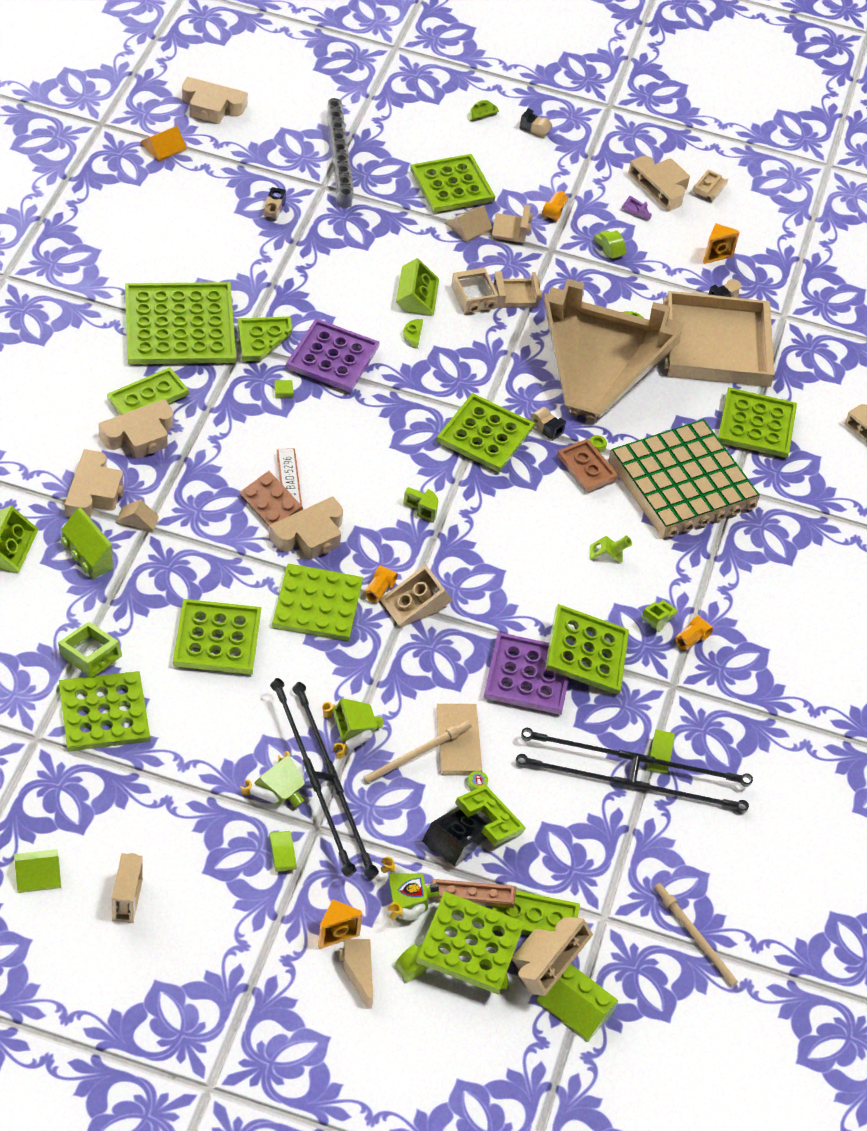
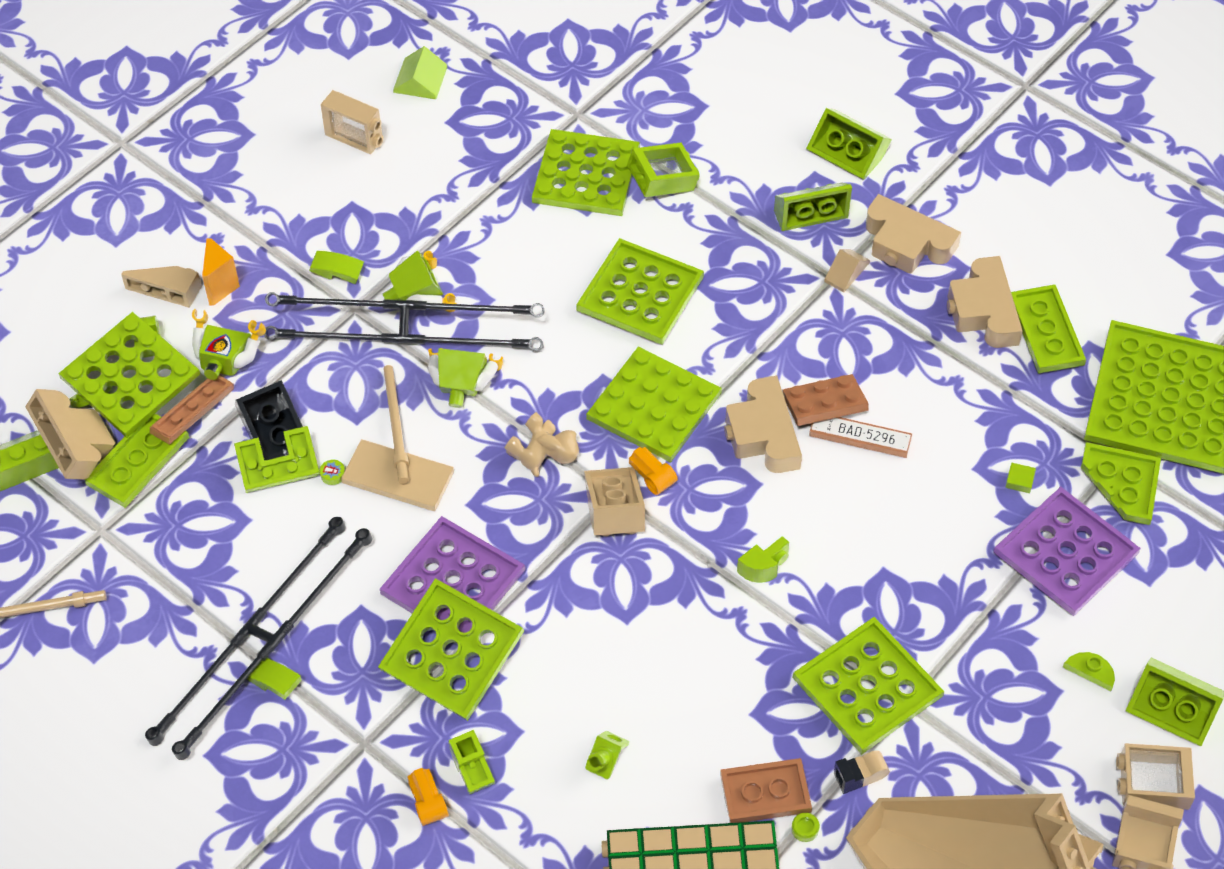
camera: 120 degrees right, 5 degrees up
(390, 640) = (560, 447): none -> tan animal

